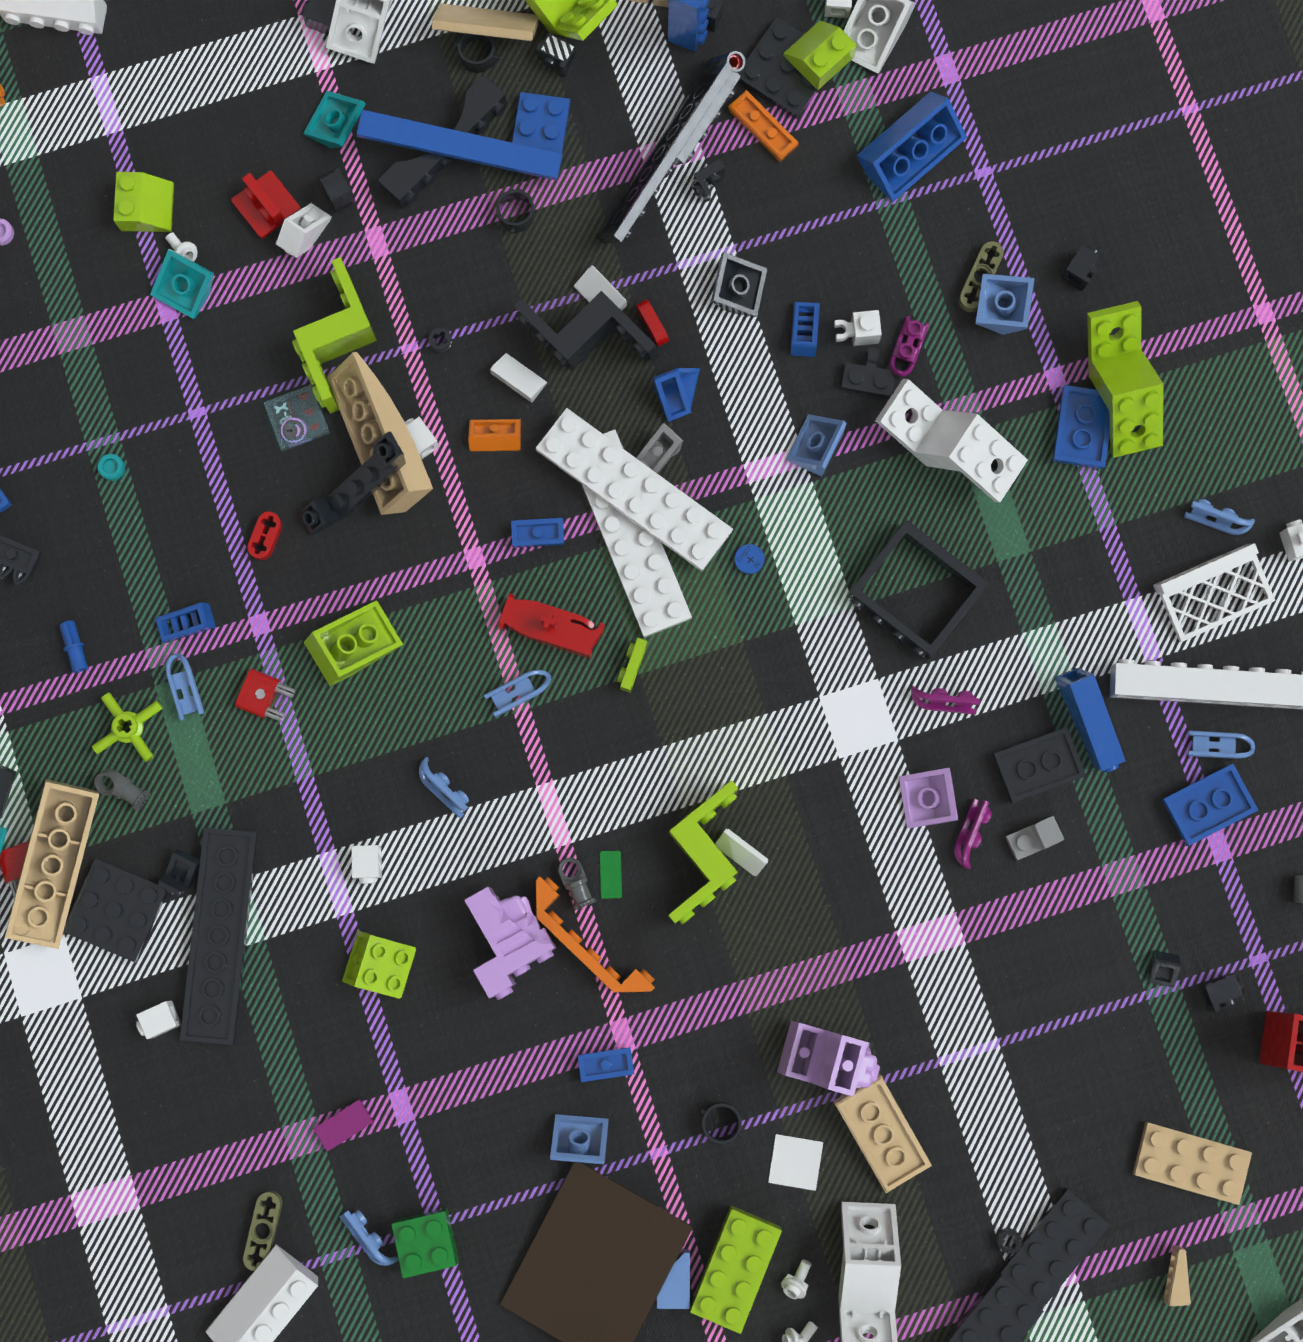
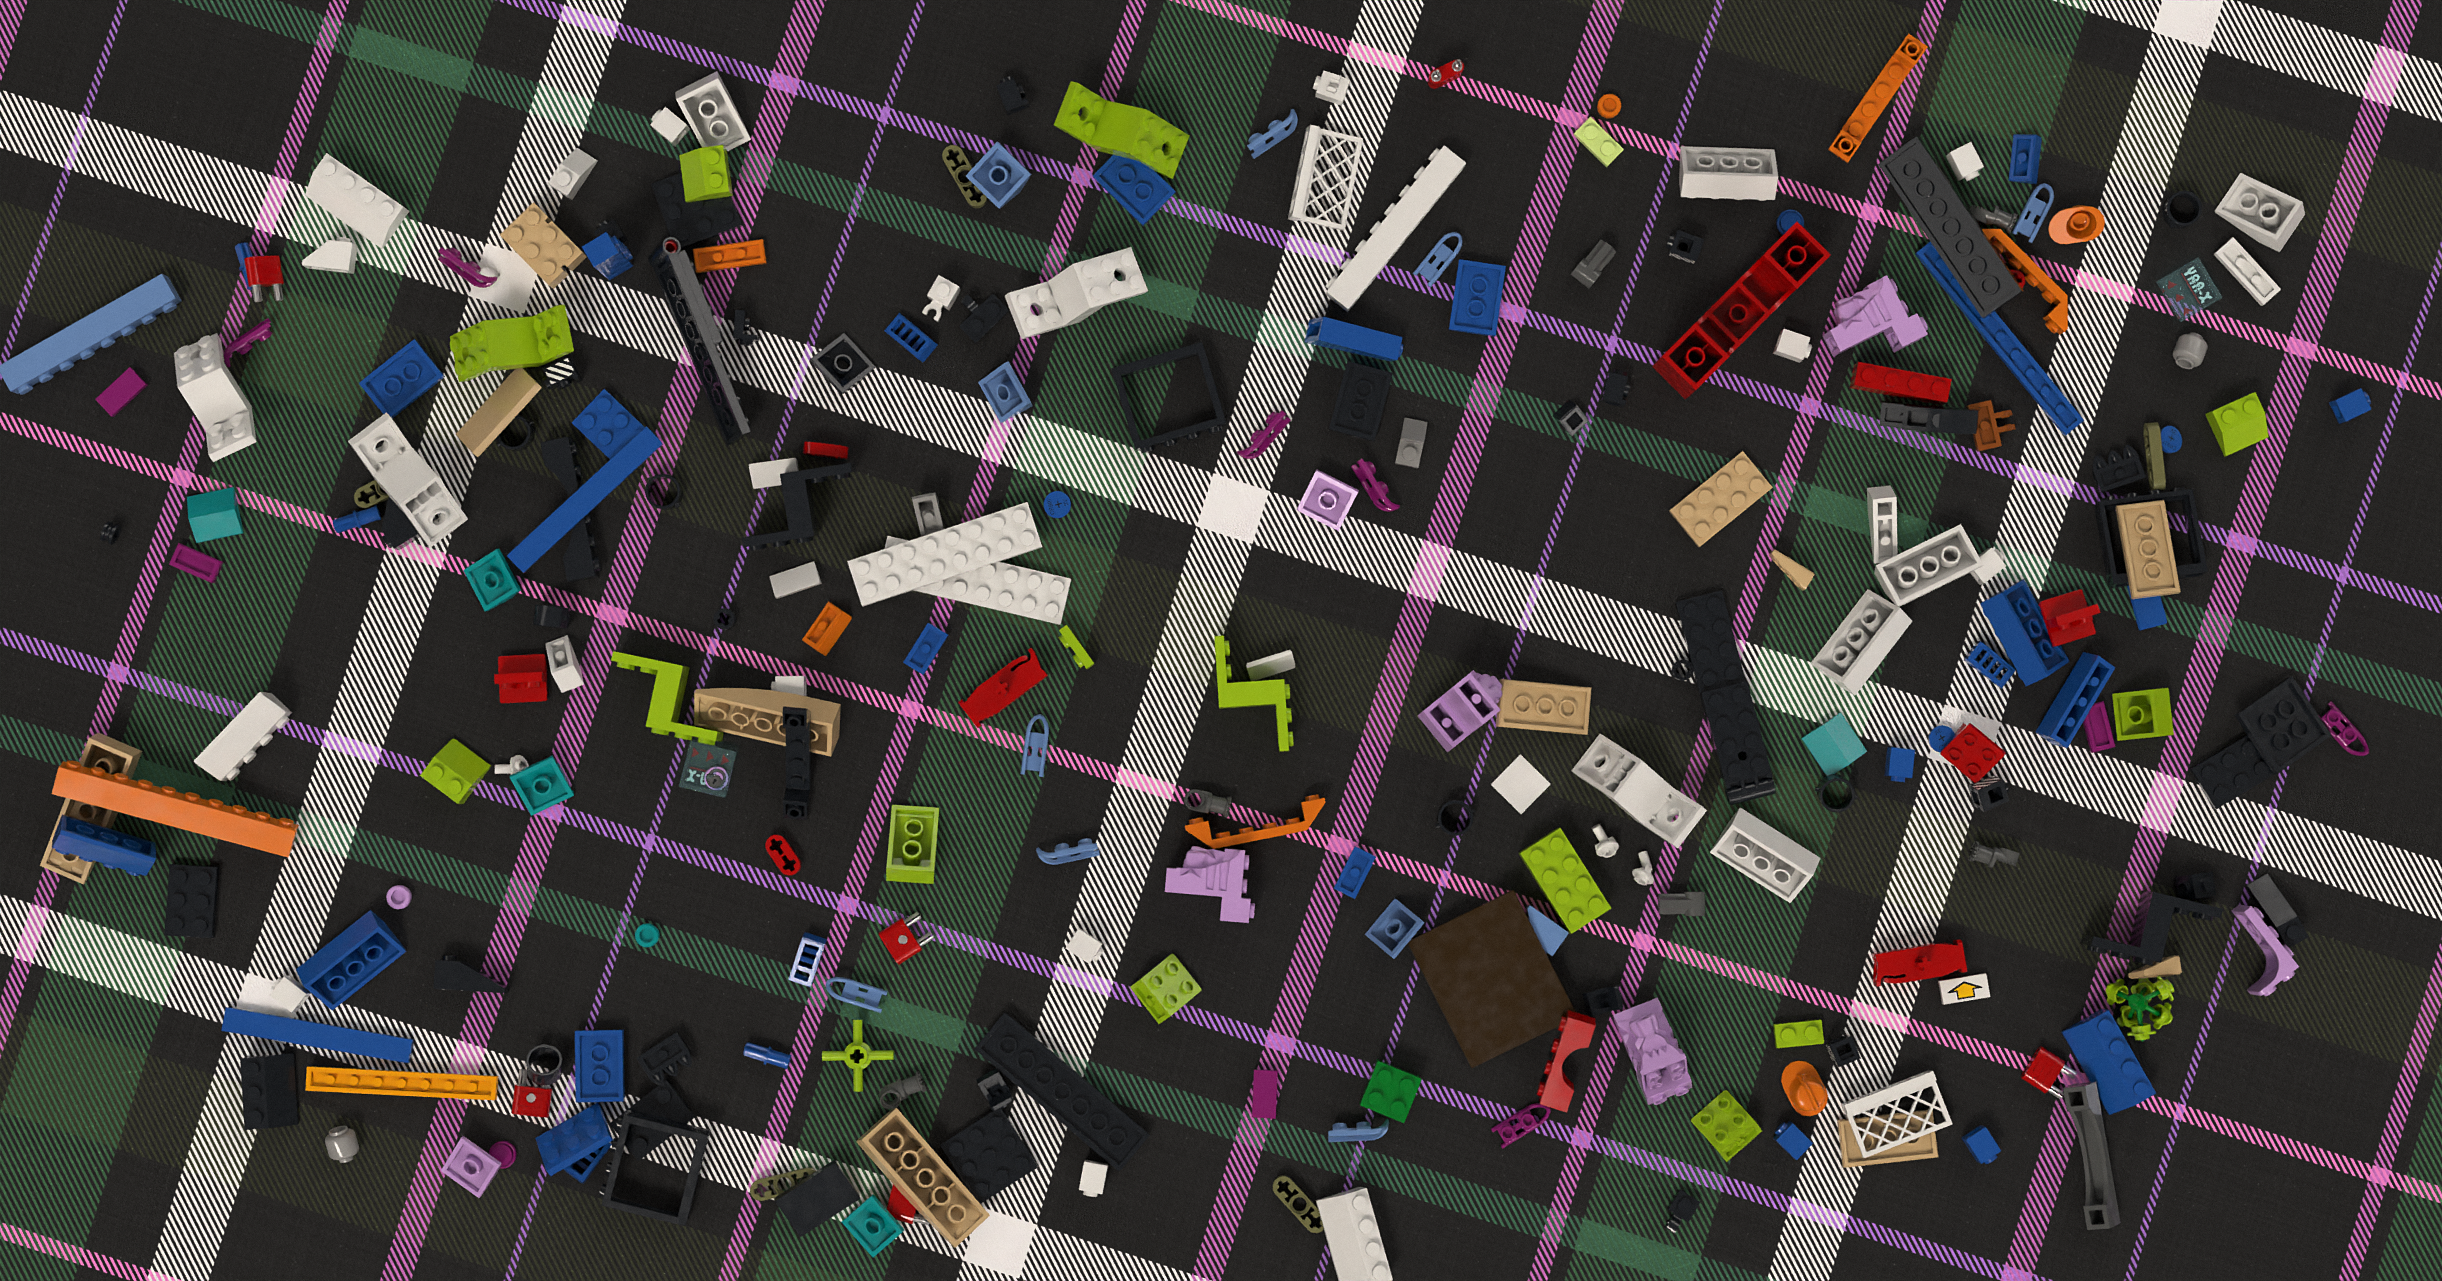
camera: 55 degrees left, 5 degrees up
(610, 874) = (1219, 772): green sticker -> none
(676, 391) = (892, 469): blue slope -> none
(907, 351) = (984, 274): magenta piece -> none
(912, 145) = (827, 155): blue slope -> none

